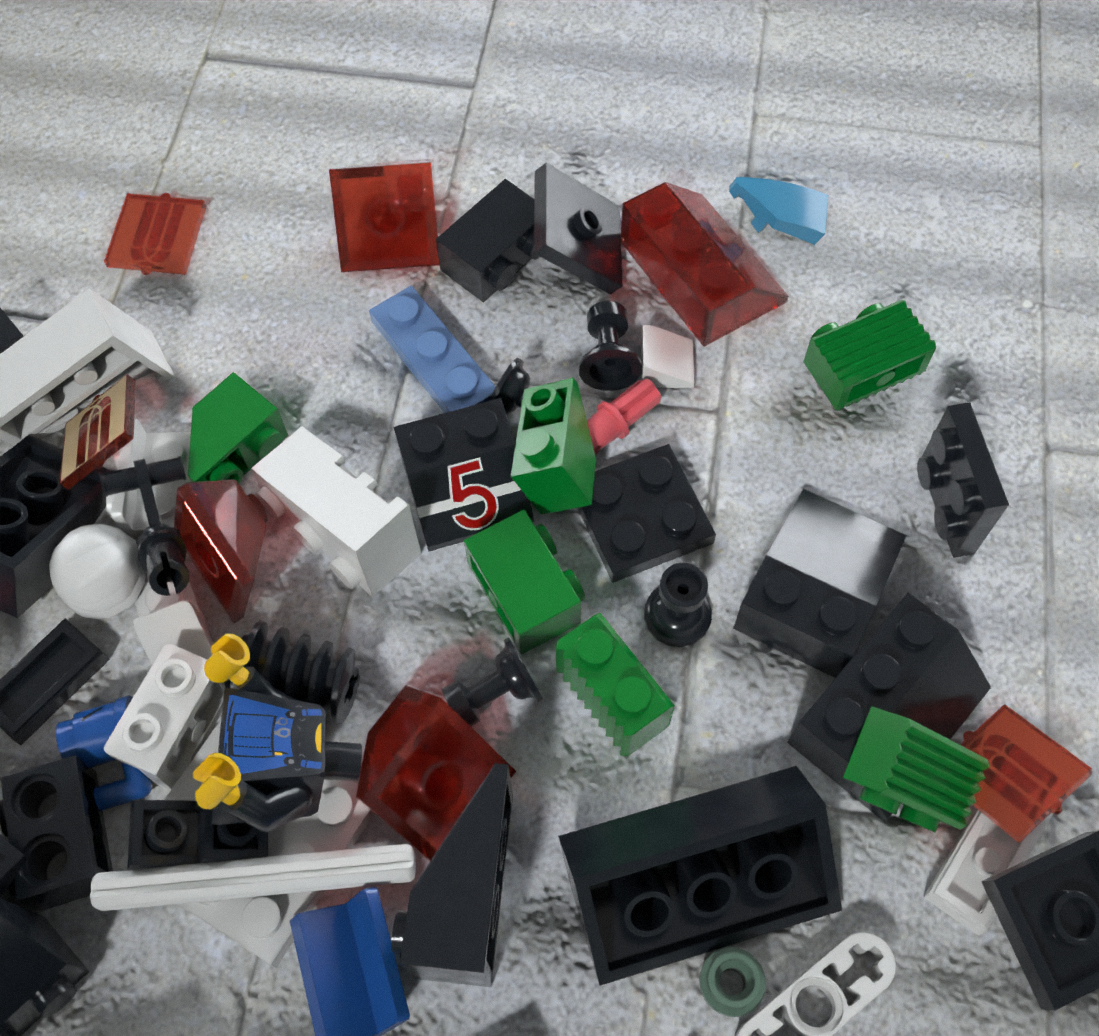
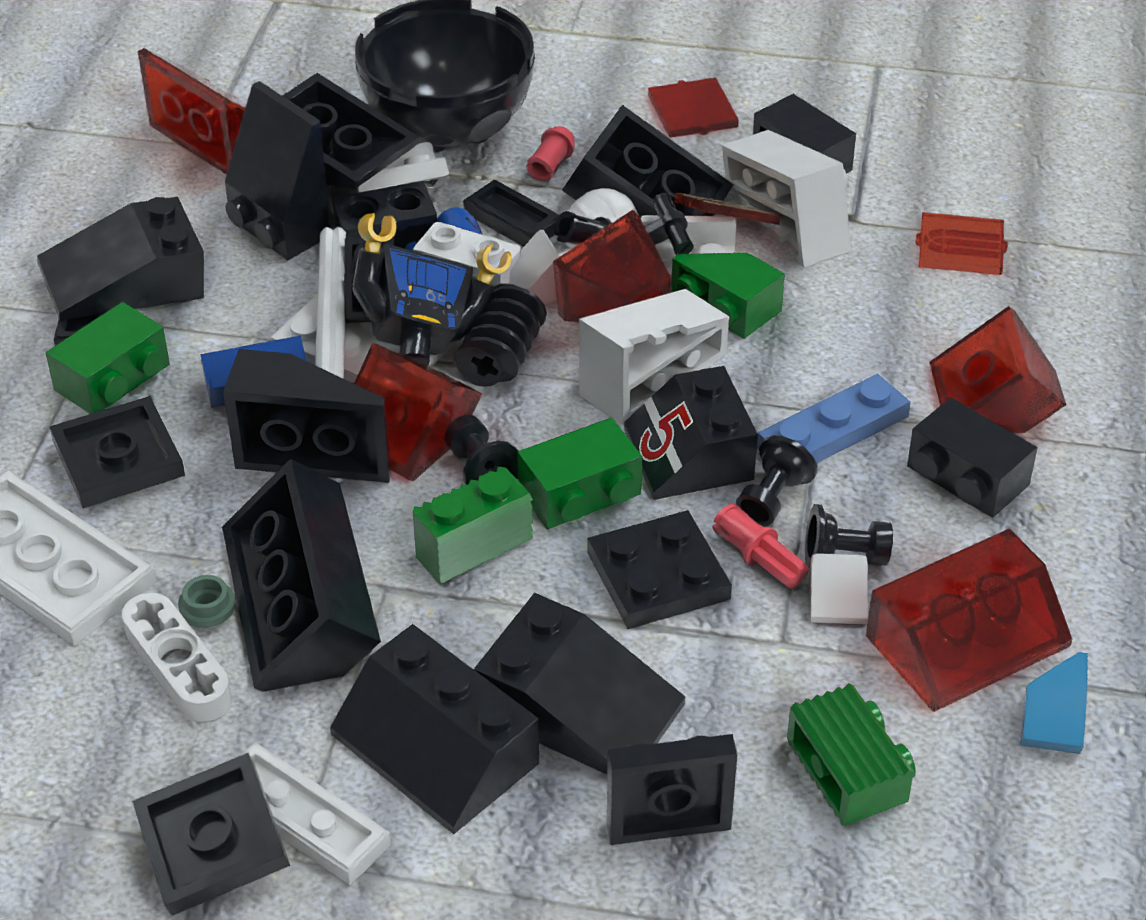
camera: 90 degrees right, 20 degrees down
(554, 448) = (707, 478): green slope -> none
(577, 229) = (981, 497): black plate -> none
(679, 608) = (552, 552): black piece -> none
(915, 768) = (359, 709): green brick -> none
(1025, 775) = (357, 812): clear red piece -> none

